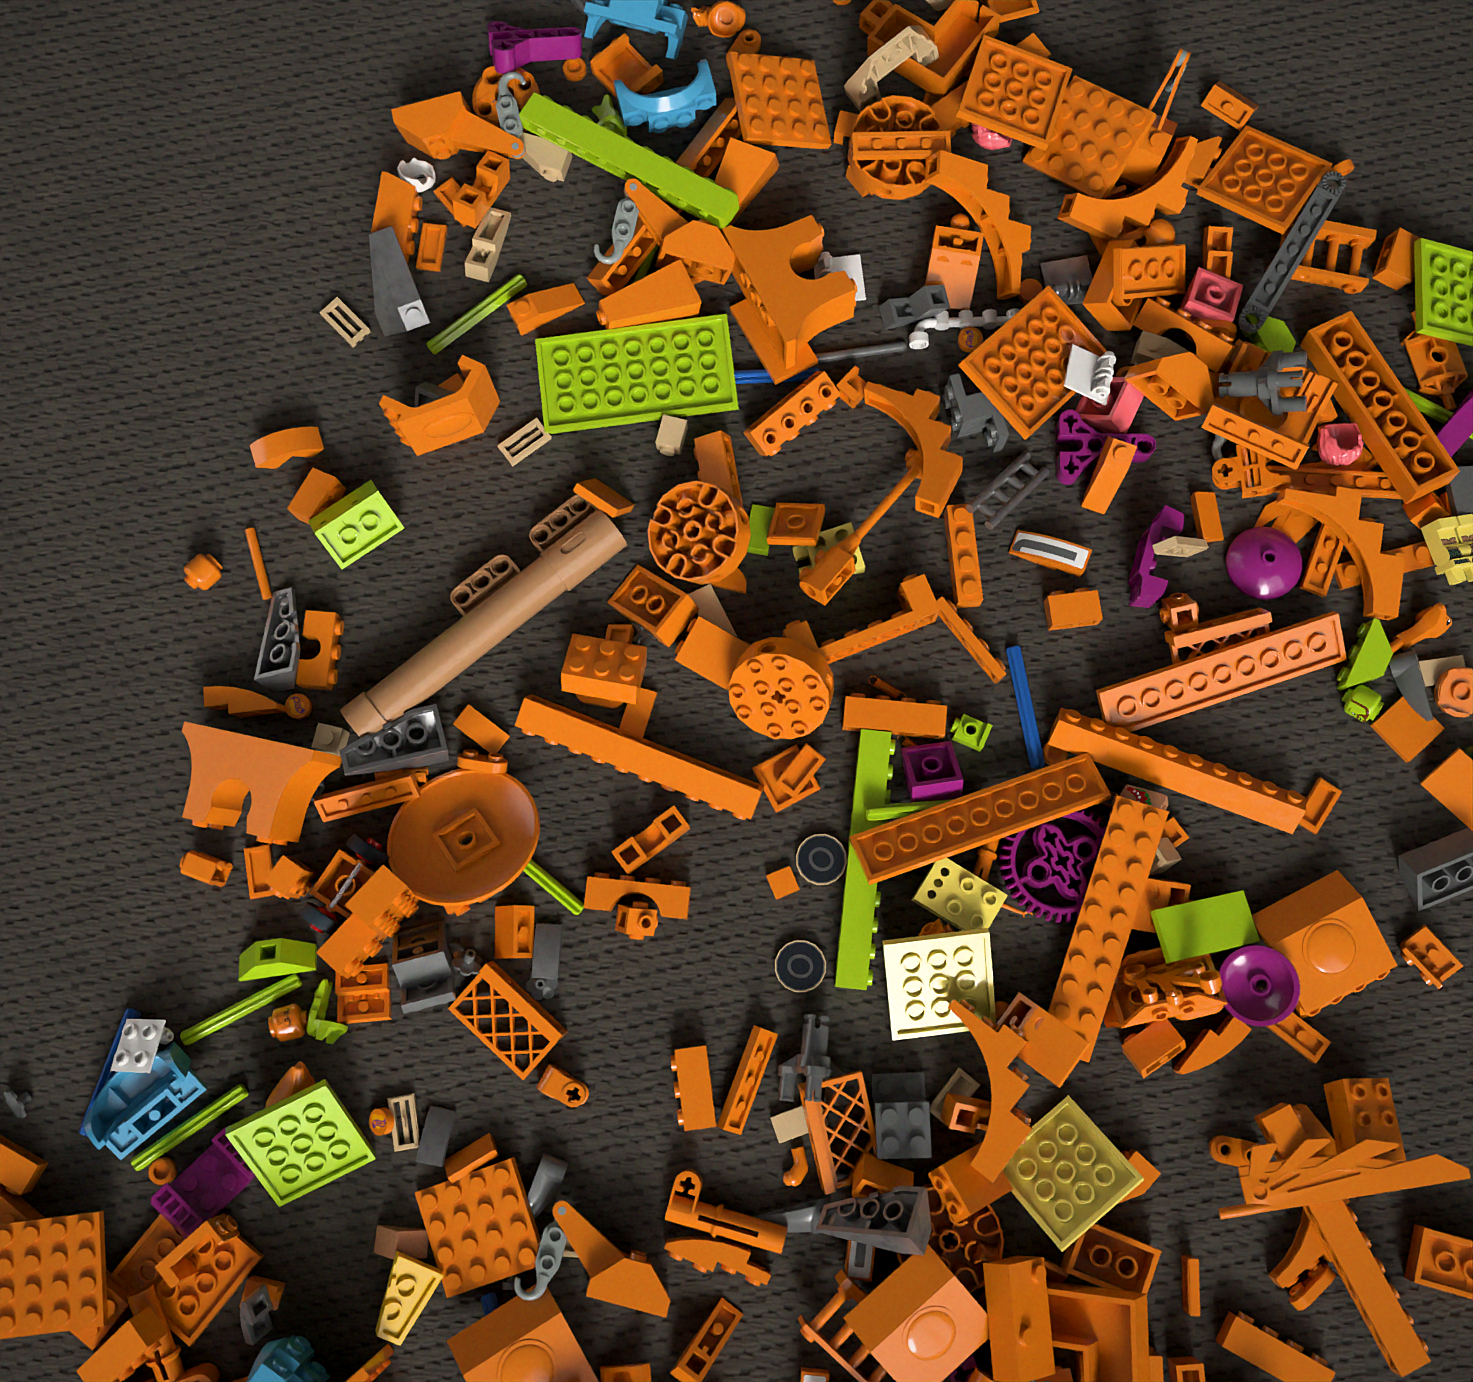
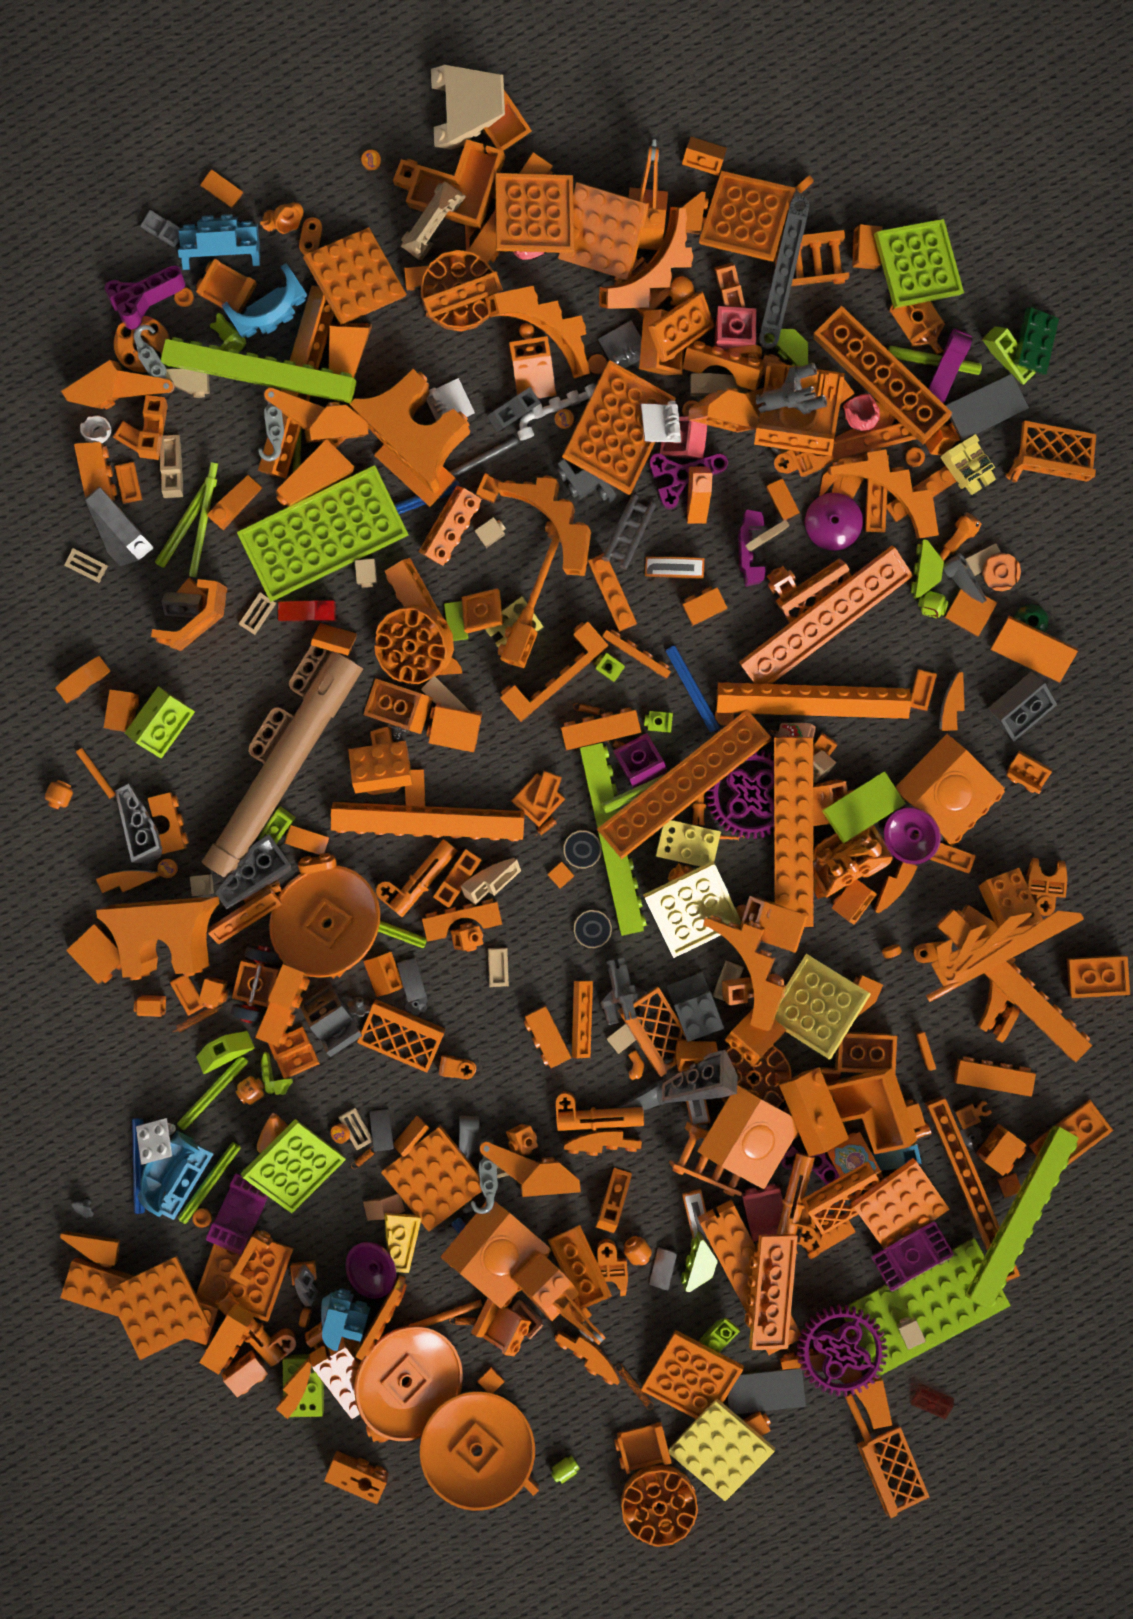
camera: 25 degrees left, 10 degrees up
(165, 780) = (96, 954): none -> orange panel
(240, 1358) = (305, 1317): none -> orange tile
(263, 902) = (195, 1016): none -> orange piece
(350, 1324) = (365, 1275): none -> magenta dish
(400, 1165) = (364, 1157): none -> orange piece
(453, 699) = (277, 825): none -> lime slope
(525, 273) = (210, 483): none -> lime bar
(586, 457) = (307, 611): none -> red slope
(599, 829) = (404, 900): none -> orange piece
(613, 1215) = (522, 1139): none -> orange brick
(662, 973) = (498, 967): none -> tan tile
(691, 857) = (490, 880): none -> tan slope
(781, 688) = (513, 740): orange brick -> none
(786, 815) = (545, 827): none -> orange piece
(837, 437) = (490, 532): none -> tan brick
(931, 634) = (617, 667): none -> lime brick
(1183, 1132) = (891, 951): none -> orange tile
(1353, 835) = (952, 703): none -> orange slope
(1389, 518) = (914, 457): none -> orange tile
(1418, 1119) = (1036, 877): none -> orange piece

